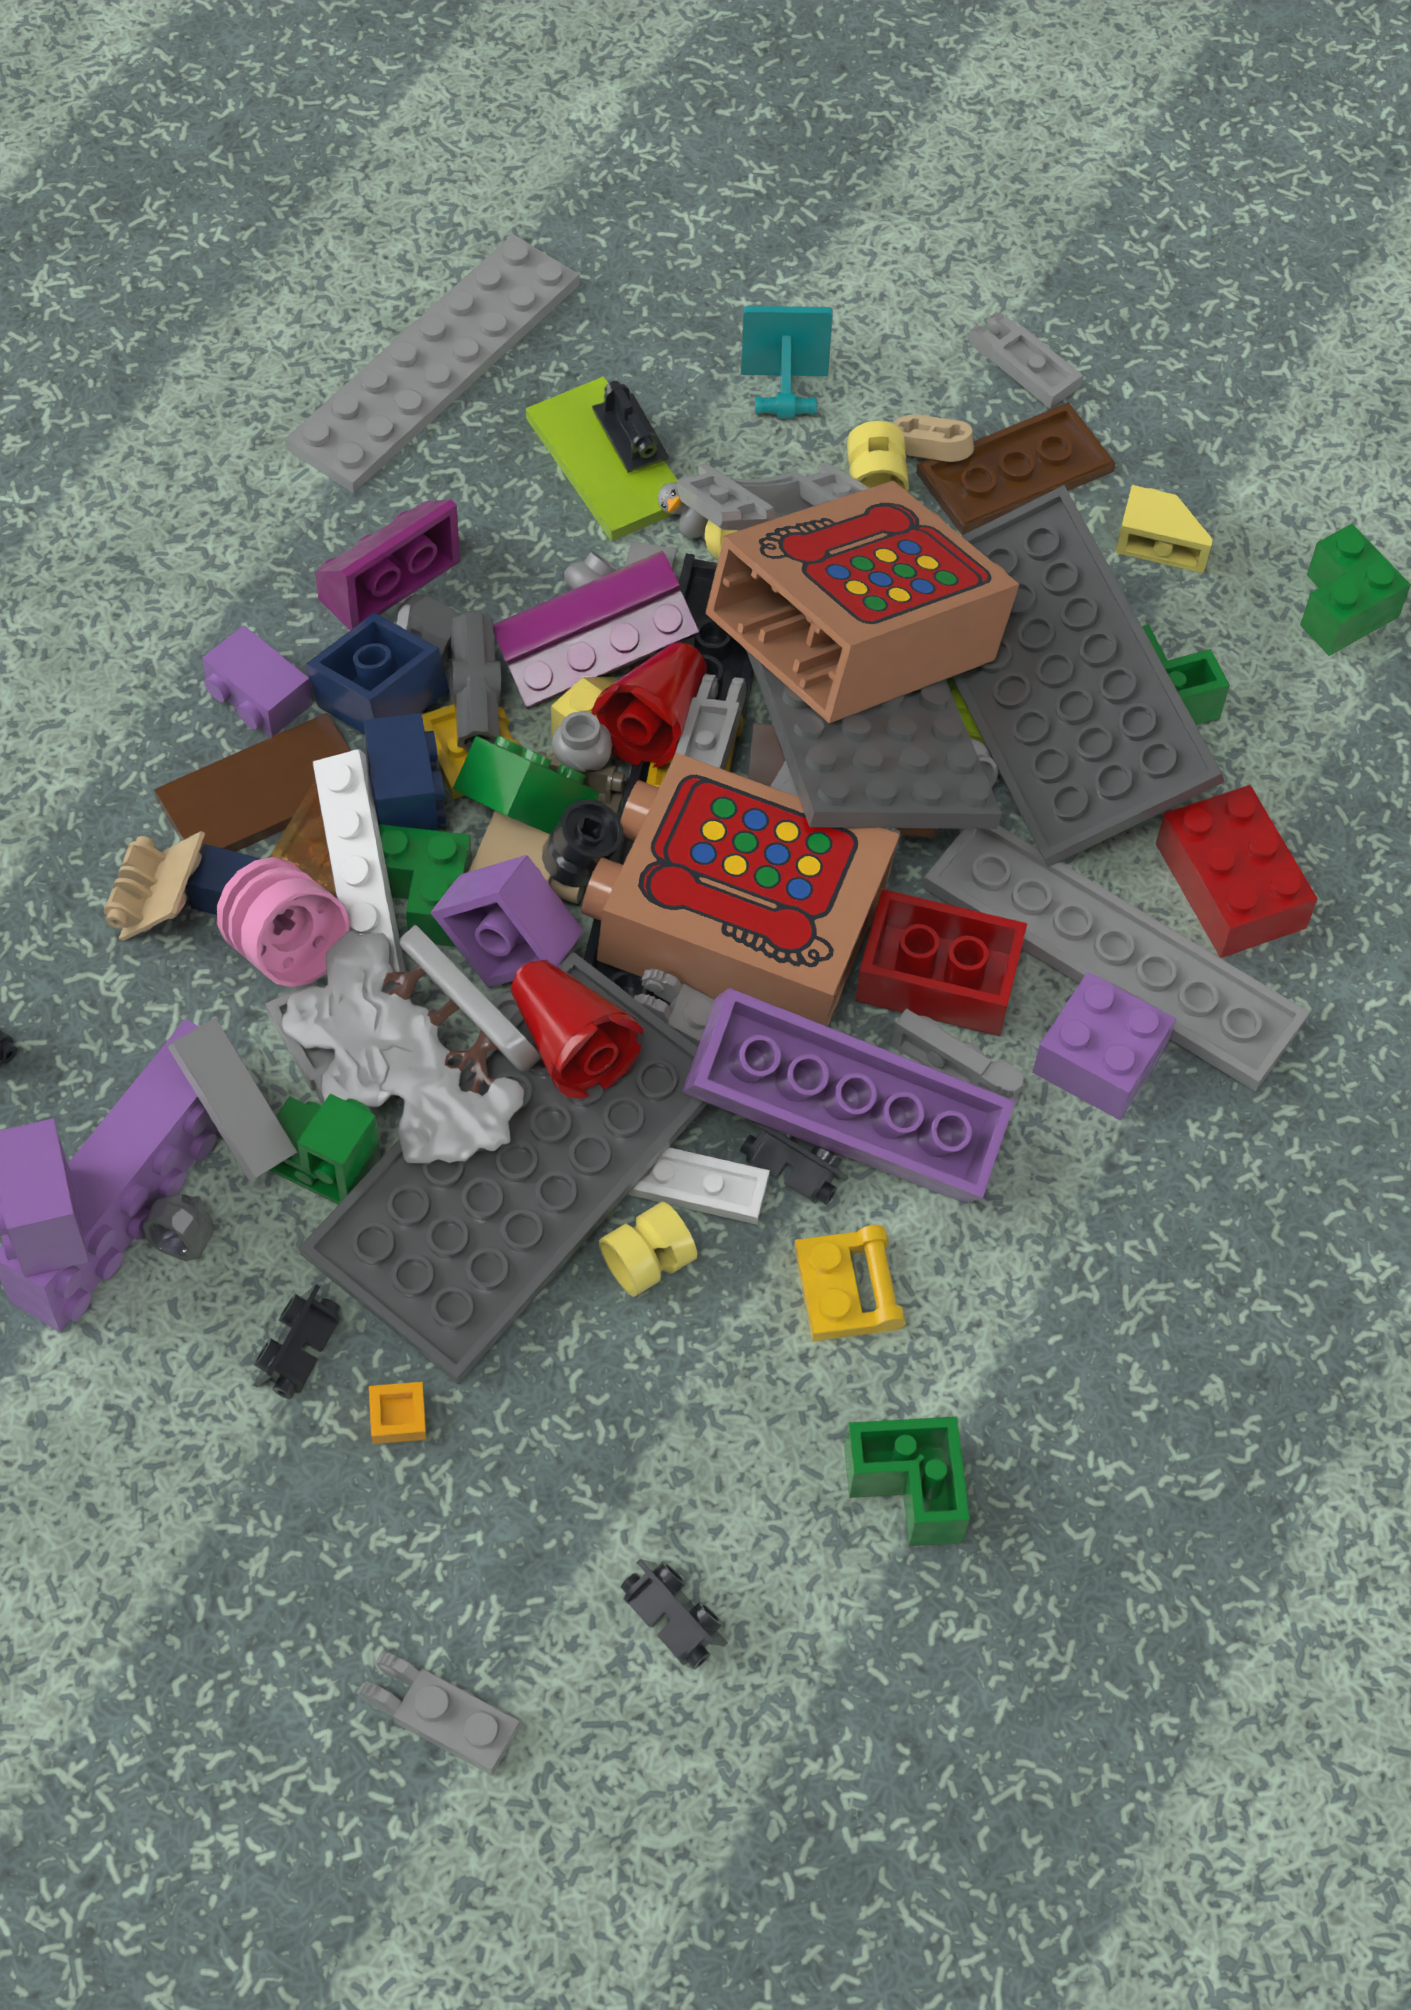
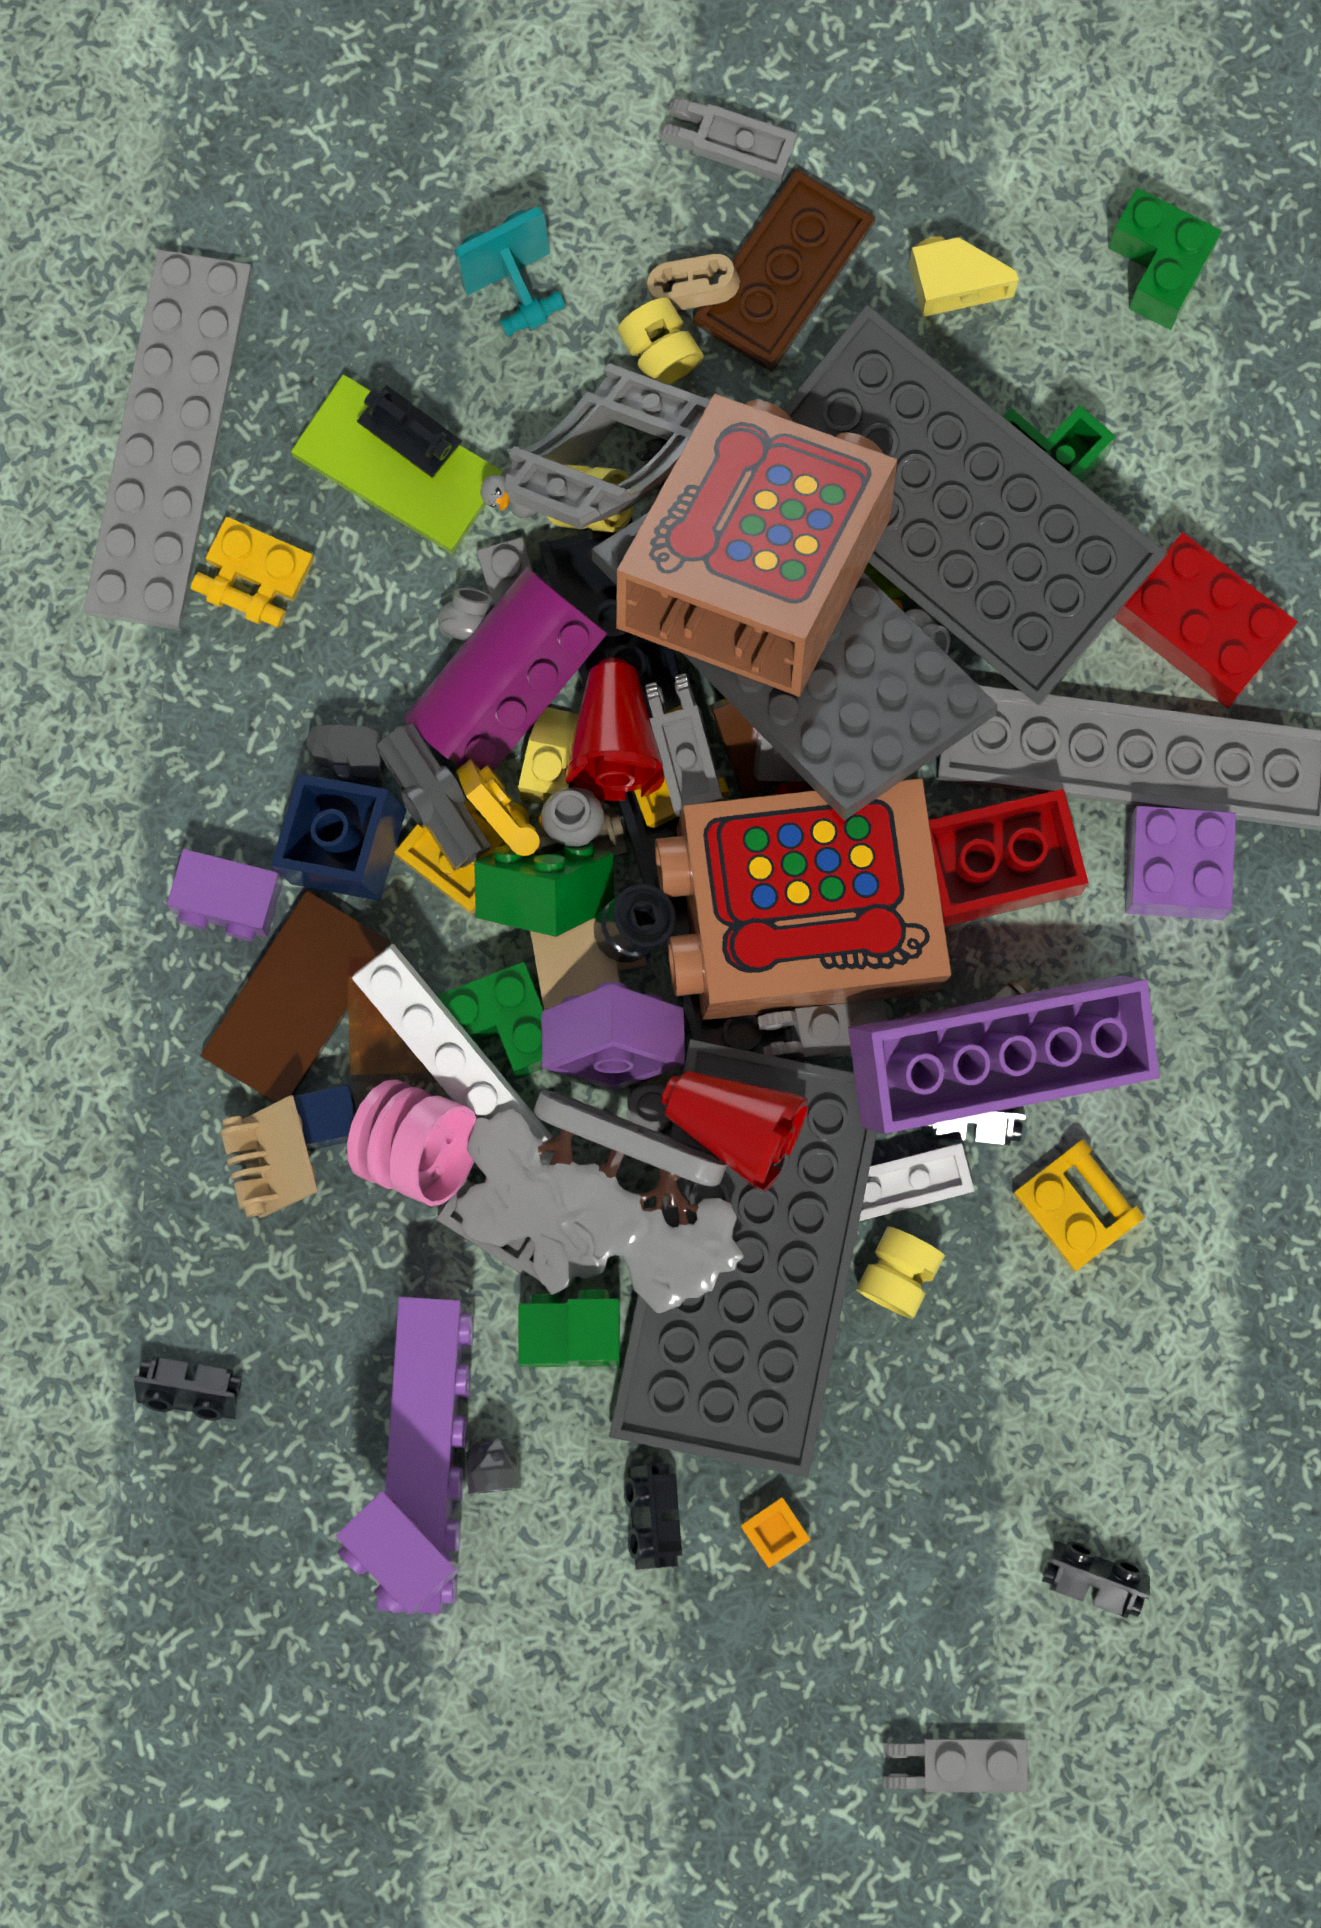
camera: 25 degrees left, 20 degrees up
(232, 1099) = (486, 1350): light grey tile -> none
(391, 563) = (268, 700): magenta slope -> none
(404, 772) = (427, 934): dark blue brick -> none
(446, 469) = (259, 560): none -> yellow plate
(521, 698) = (491, 800): none -> yellow plate
(915, 1461) = (1234, 1346): green brick -> none
(931, 1046) = (1063, 944): light grey hinge -> none

